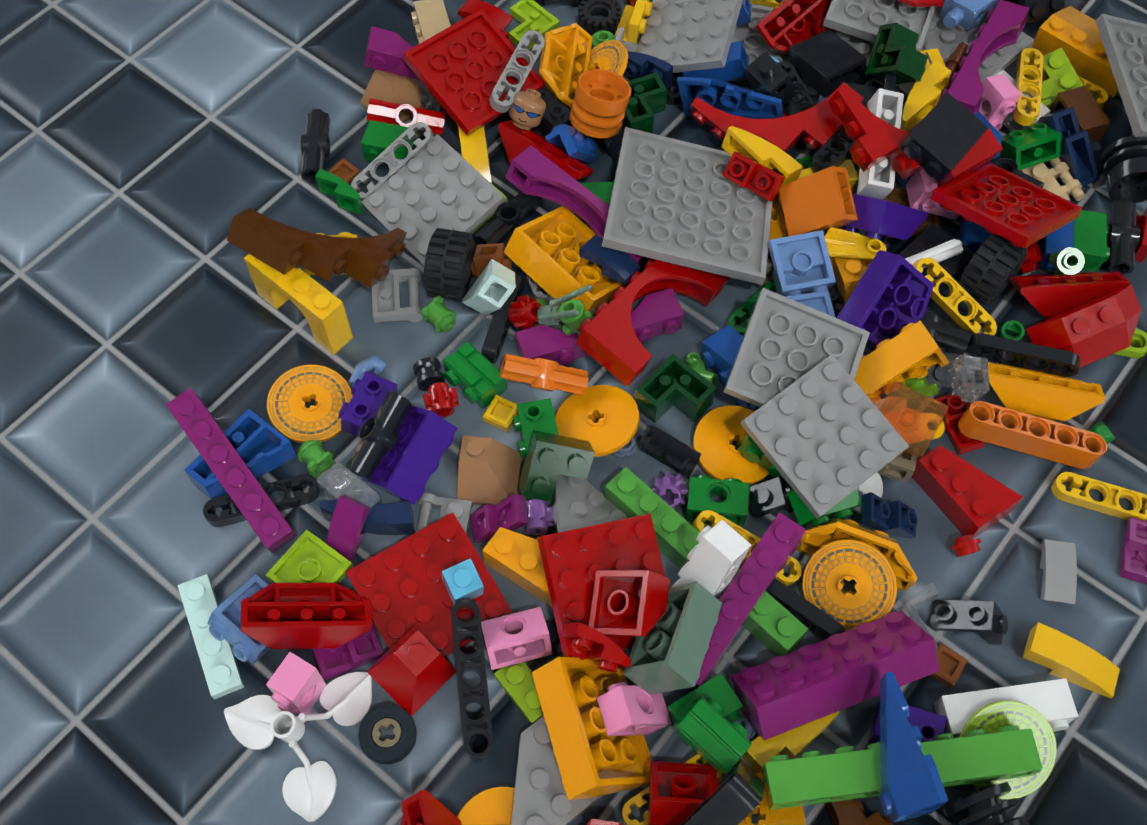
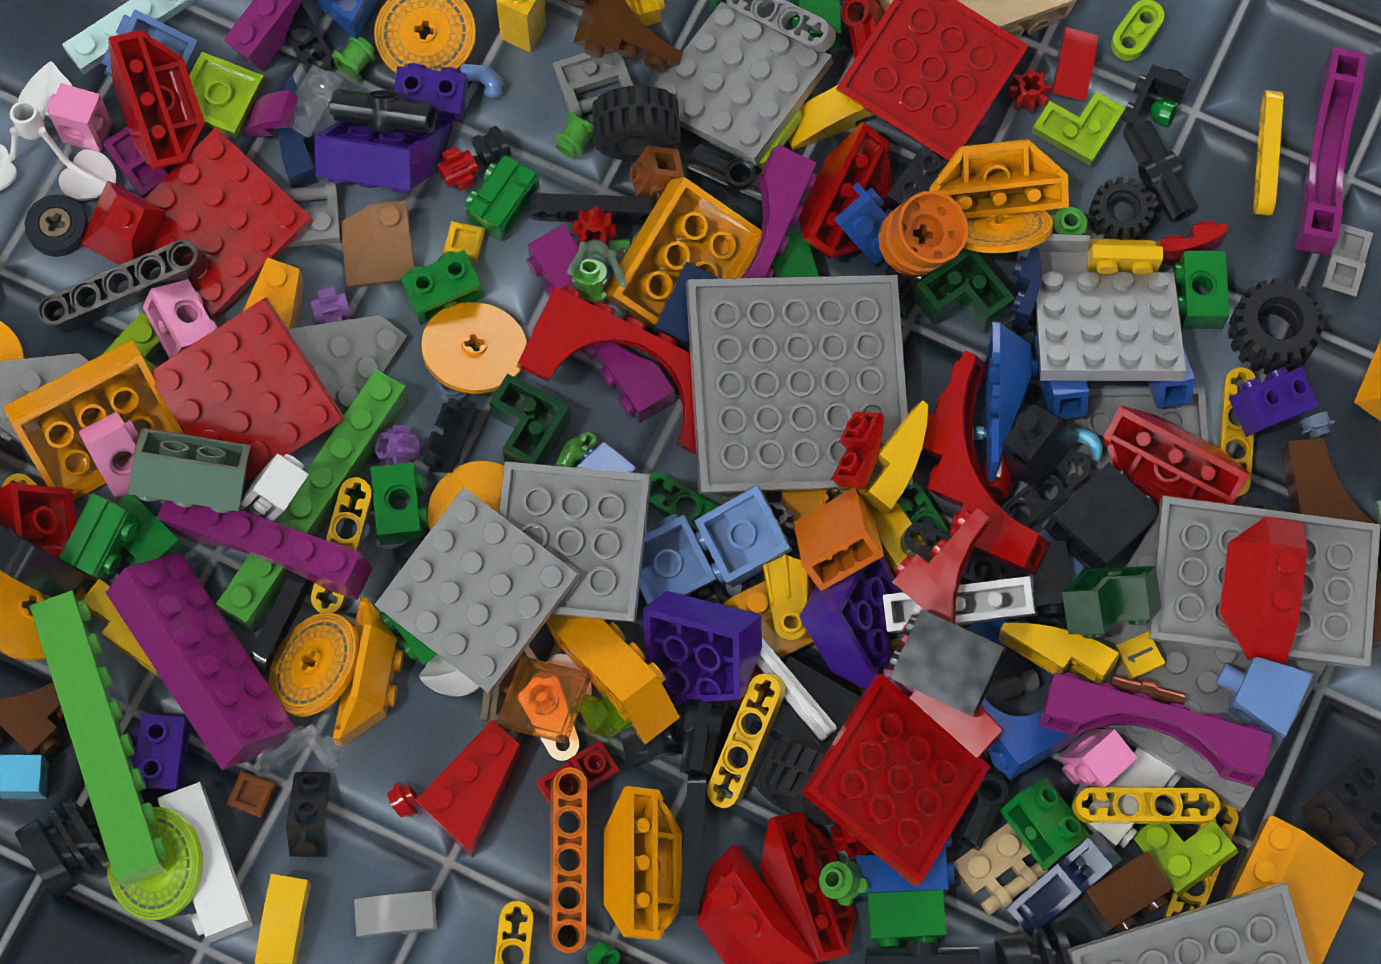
camera: 75 degrees right, 10 degrees up
(462, 581) = (219, 245): medium azure brick -> none
(488, 519) = (318, 268): magenta slope -> none
(491, 288) = (613, 179): light aqua slope -> none
(517, 71) = (947, 124): light grey beam -> none
(527, 109) = (895, 150): medium nougat head -> none
(544, 374) = (511, 270): orange piece -> none
(553, 456) = (395, 302): dark green brick -> none
(600, 647) = (158, 403): red slope -> none
(628, 602) = (214, 411): red slope -> none
(889, 517) = (421, 702): dark blue slope -> none
(908, 777) = (75, 725): blue wedge -> none
(969, 377) = (637, 762): clear brick -> none
(1013, 328) = (720, 829): green hinge -> none

